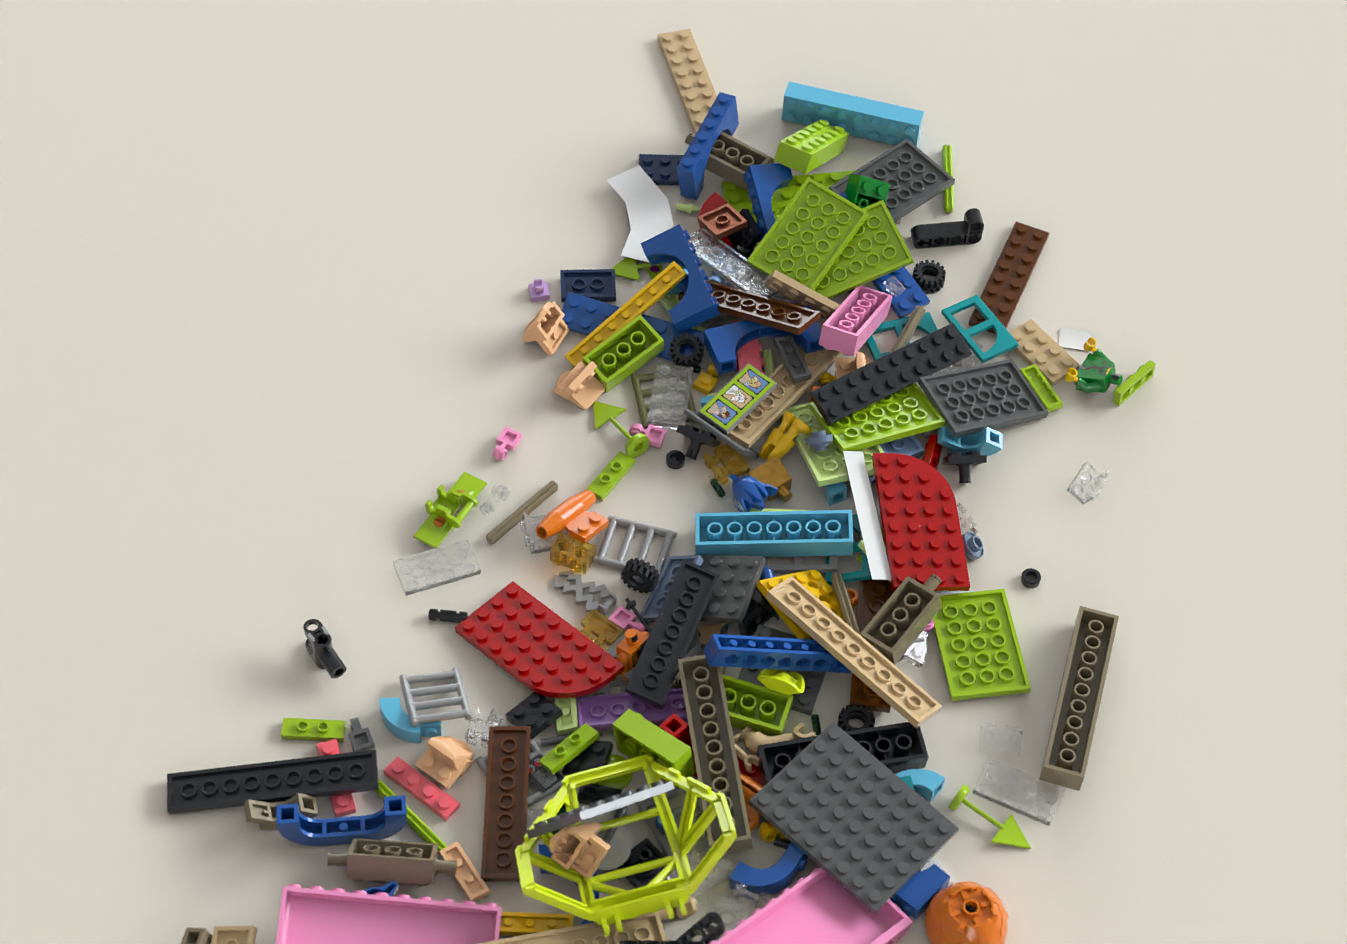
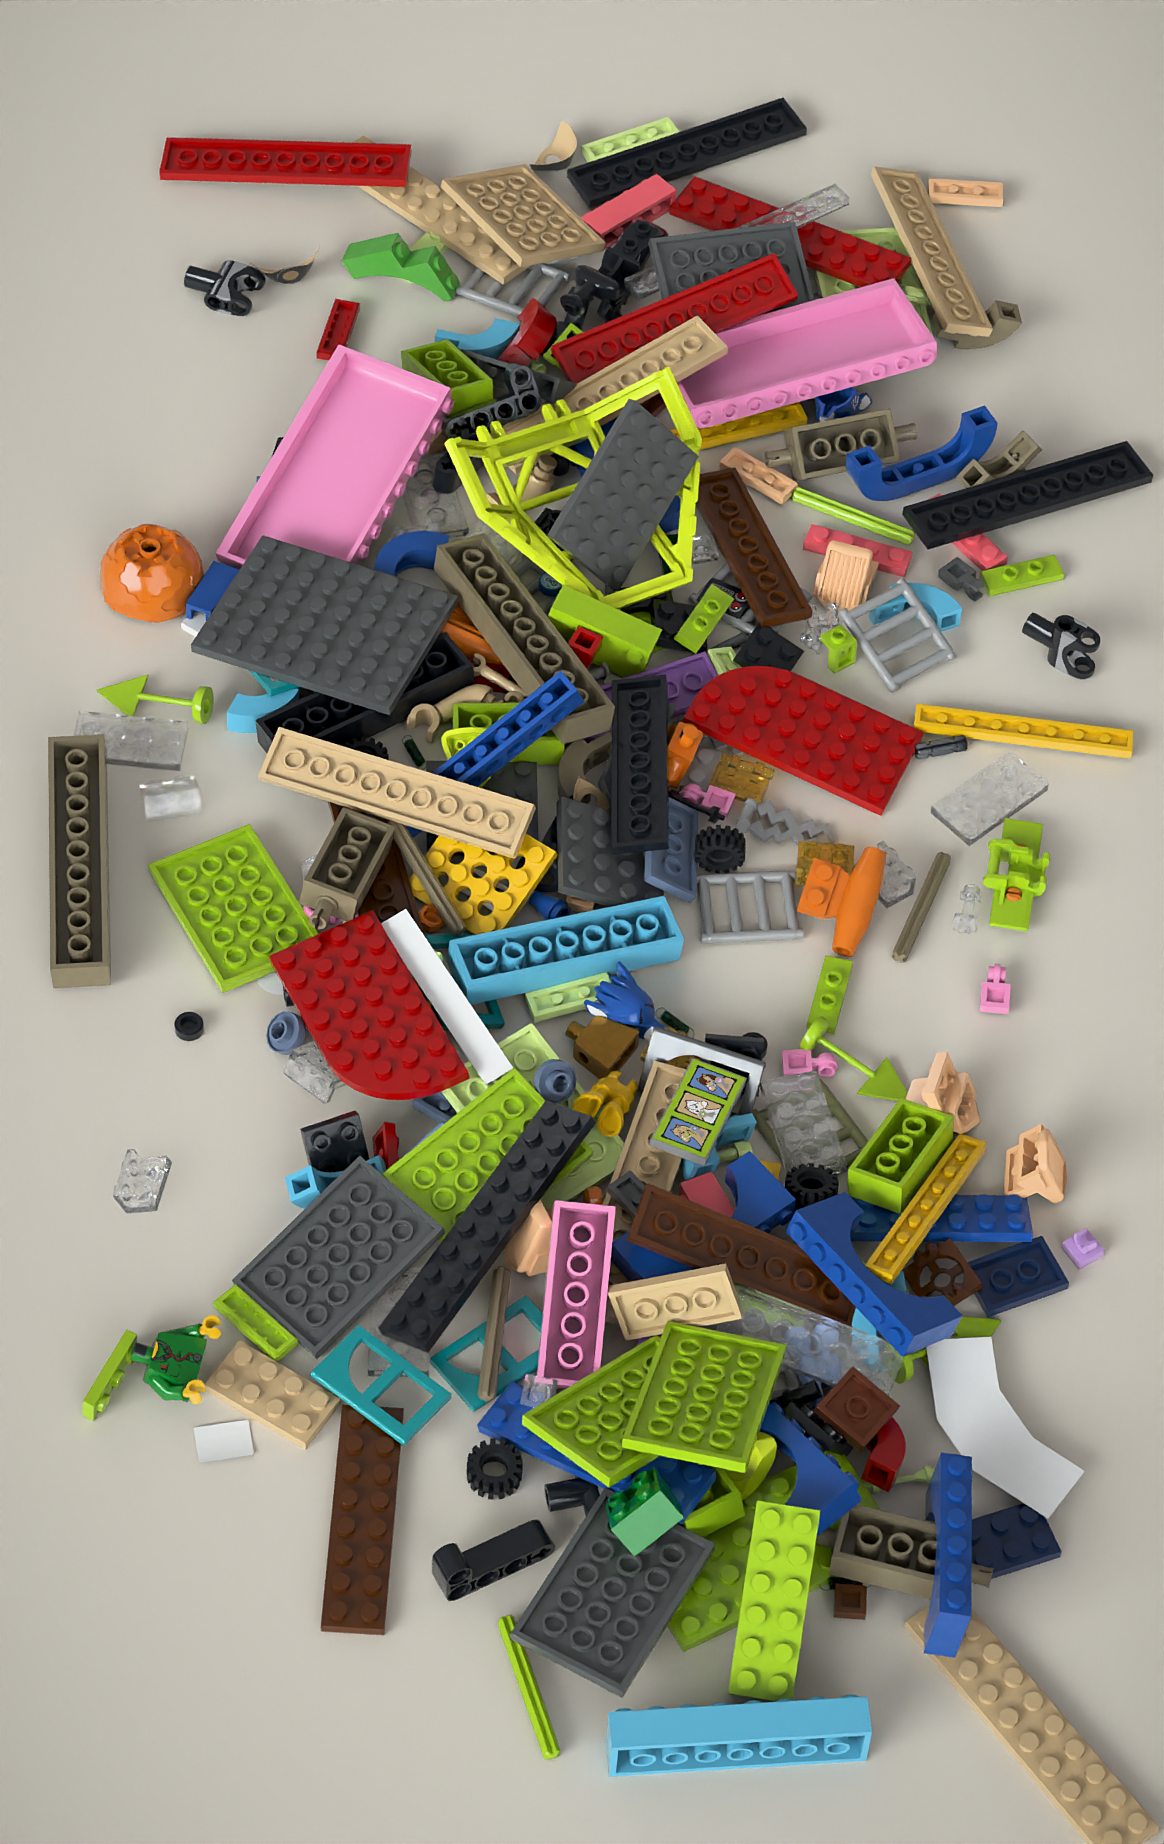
camera: 160 degrees right, 0 degrees up
(386, 607) = (1024, 730): none -> yellow plate
(481, 699) = (841, 648): none -> lime bracket
(630, 280) = (953, 1291): none -> reddish brown piece

